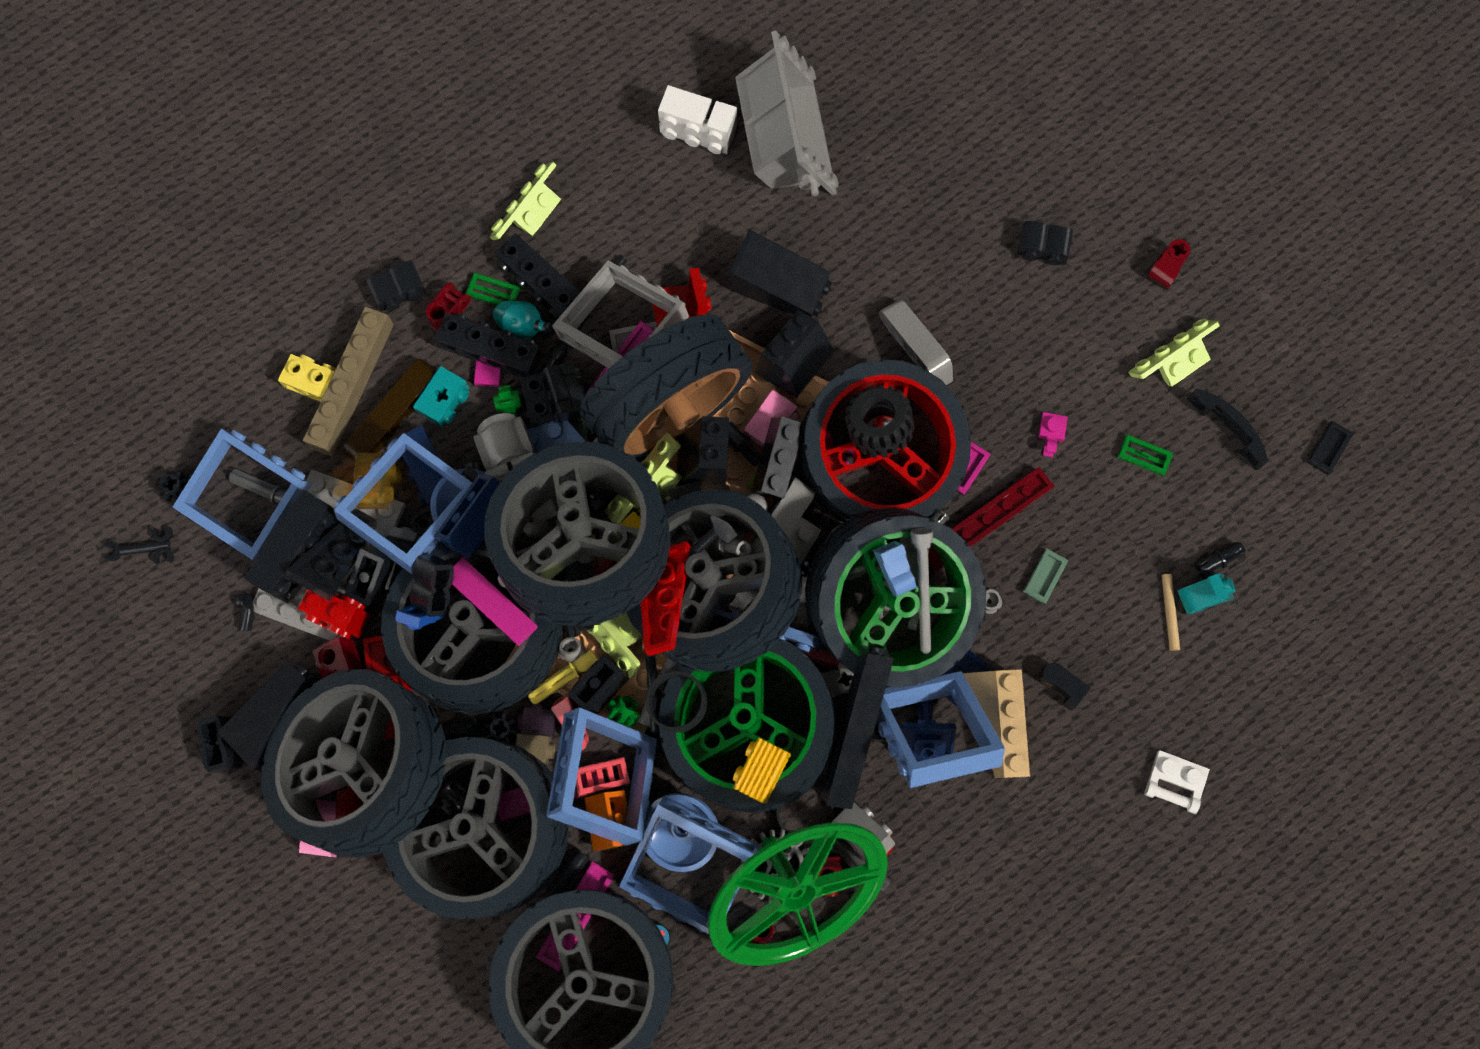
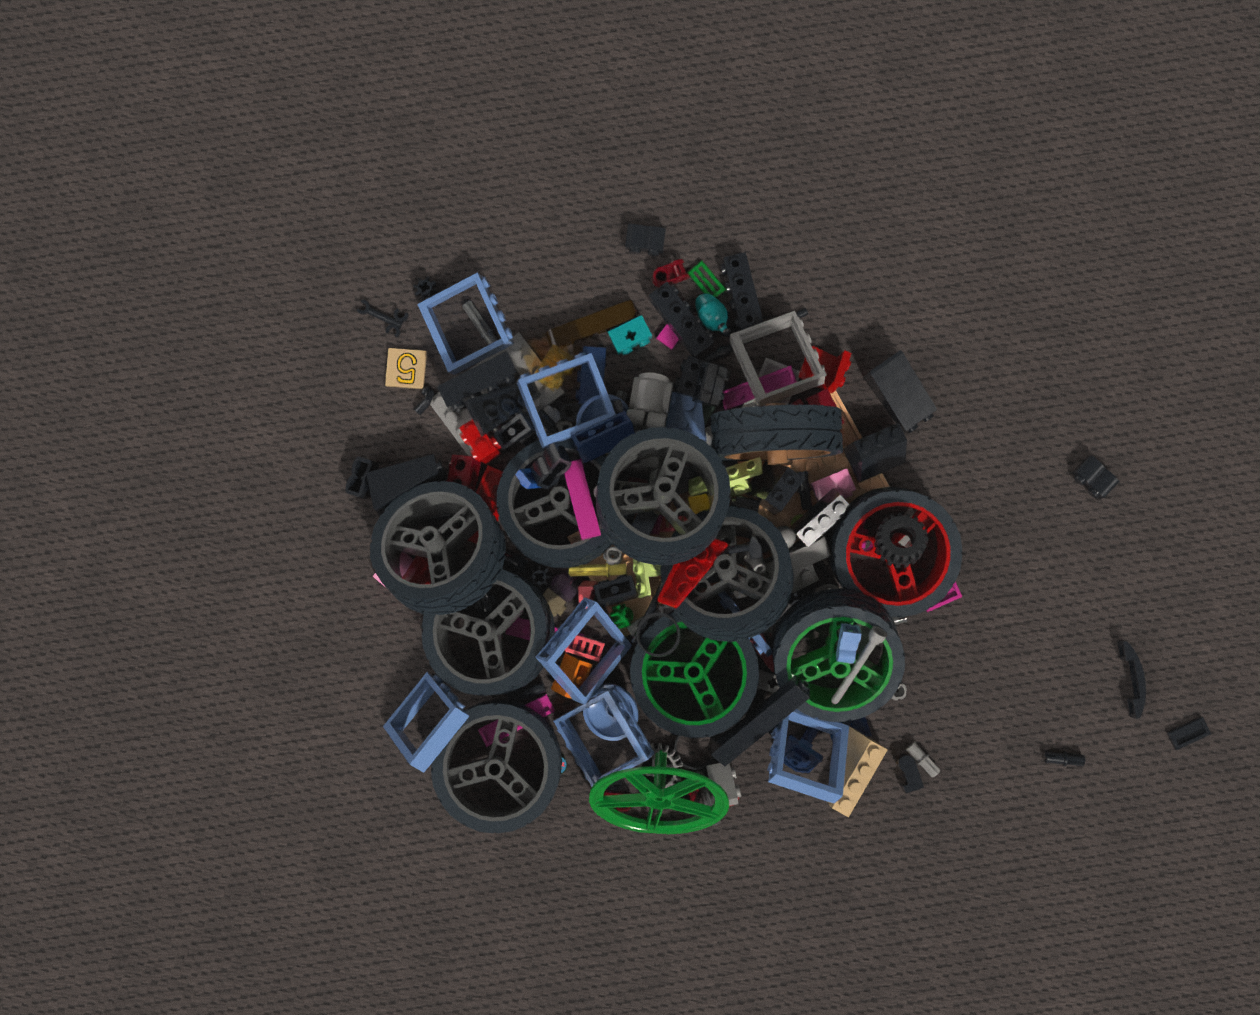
camera: 35 degrees right, 10 degrees up
(202, 589) = (406, 368): none -> tan tile
(306, 377) = (552, 269): light yellow brick -> none
(348, 382) = (576, 287): dark tan brick -> none
(486, 985) = (440, 735): none -> medium blue window
(507, 400) = (670, 365): green gear -> none
(532, 207) = (766, 237): yellowish green bracket -> none
(684, 115) = (911, 242): white piece -> none
(761, 770) = (683, 713): yellow brick -> none
(785, 121) = (975, 286): light grey piece -> none
(917, 340) = (963, 493): light grey beam -> none
(998, 512) = (942, 637): dark red plate -> none
(1045, 576) = (943, 697): sand green tile -> none
(1052, 430) = (1014, 606): dark pink plate -> none
(1069, 659) = (923, 759): none -> light grey axle
(1140, 463) = (1071, 675): green tile -> none
(1169, 264) = (1167, 545): dark red piece -> none
(1170, 610) = (1009, 771): tan bar -> none
(1178, 357) = (1131, 610): yellowish green bracket -> none
(1179, 773) = (944, 873): white plate -> none
(1207, 593) = (1040, 776): teal pin -> none

